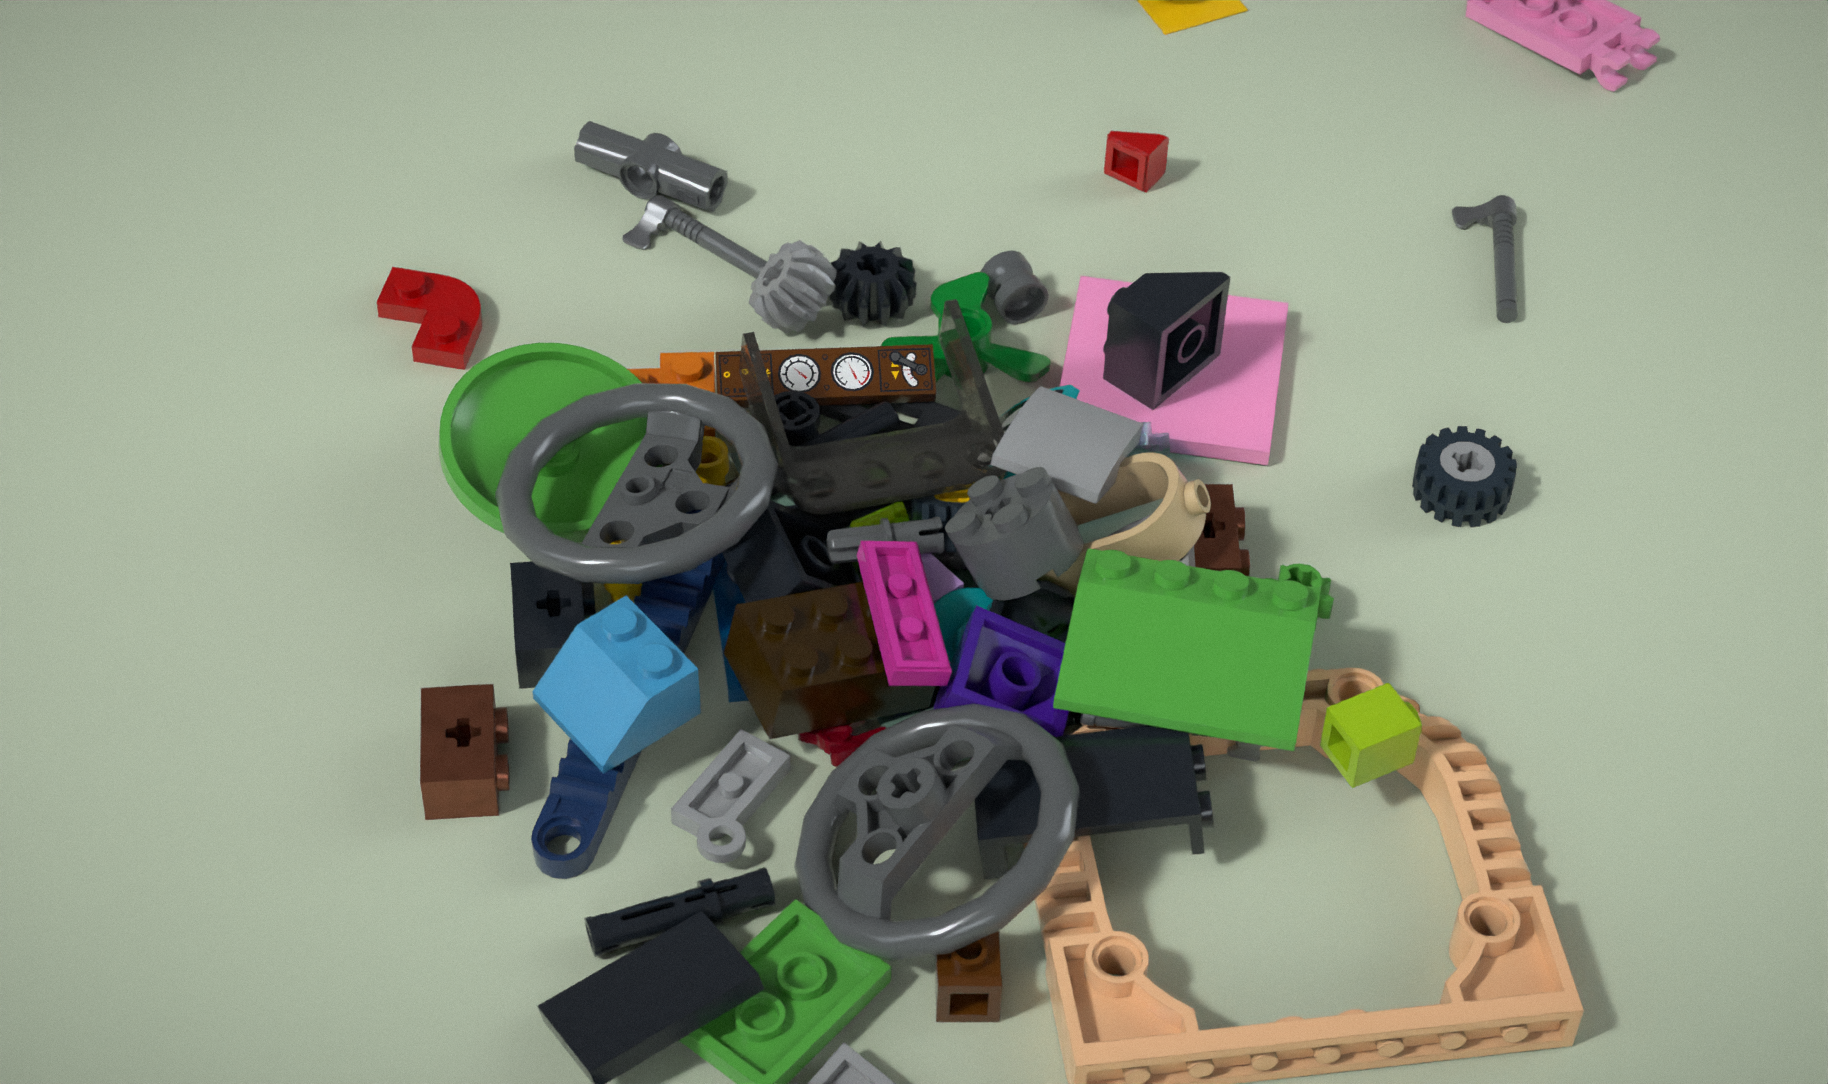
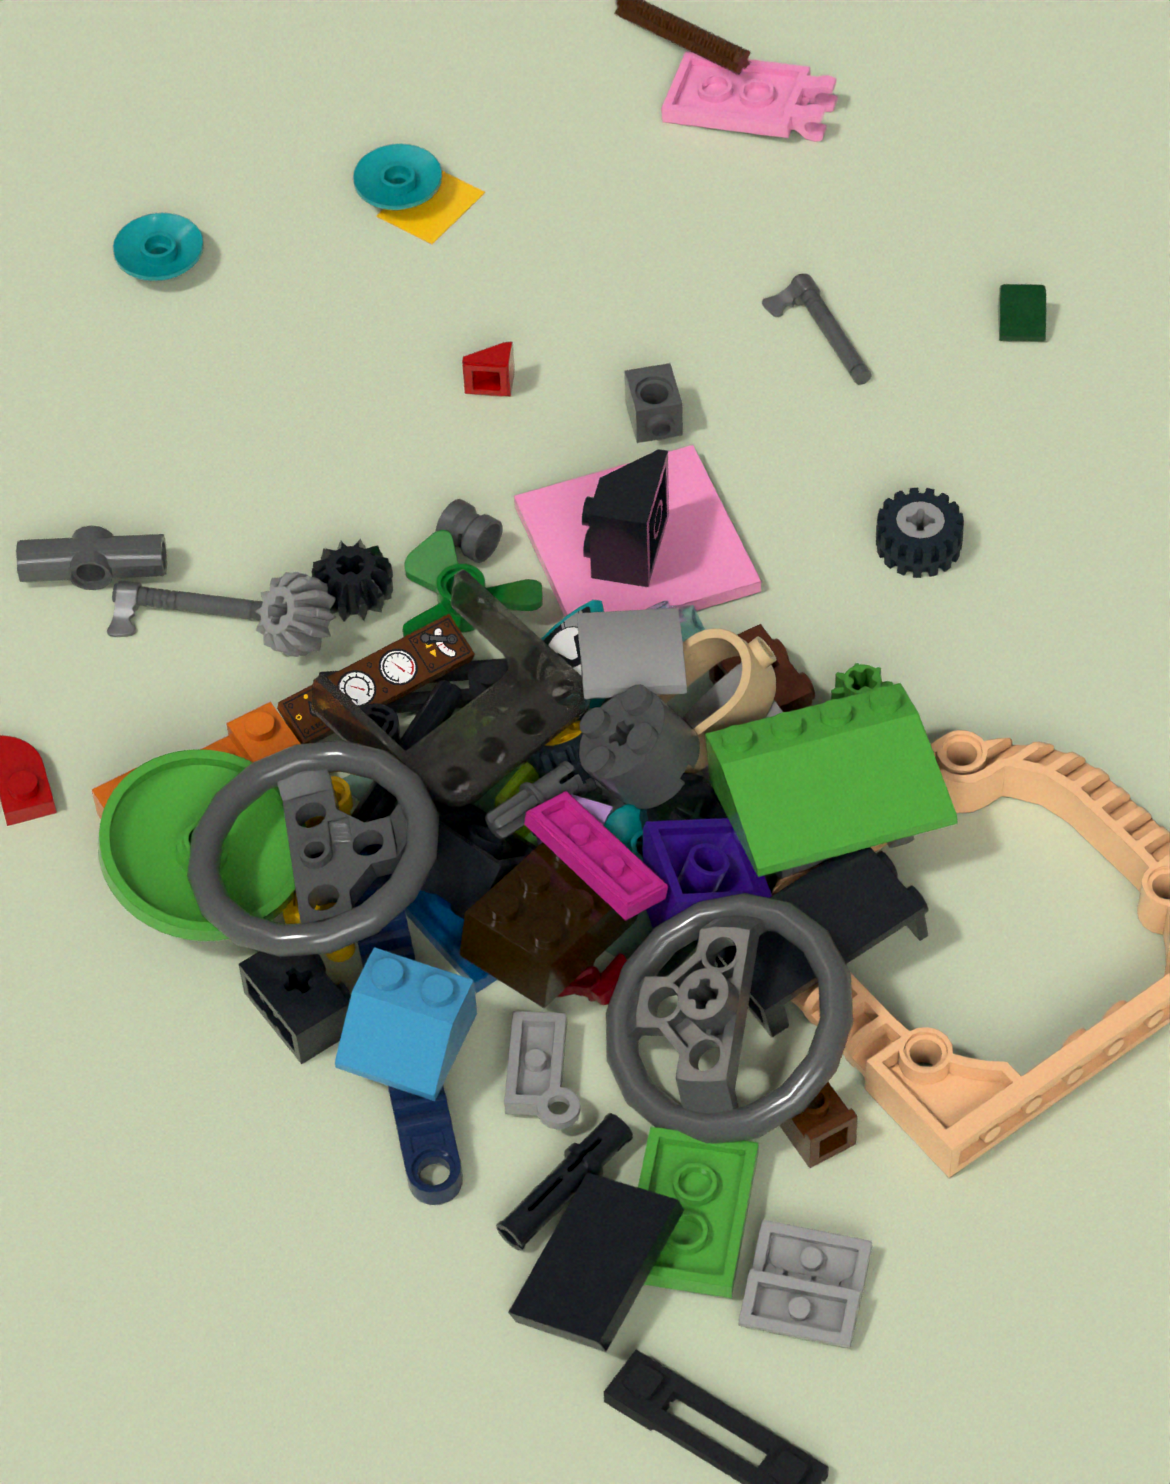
camera: 25 degrees left, 5 degrees up
(461, 751) = (303, 1139): copper brick -> none
(1274, 249) = (653, 403): none -> dark grey brick
(1371, 734) = (1003, 782): lime brick -> none
(1714, 321) = (1022, 312): none -> dark green slope

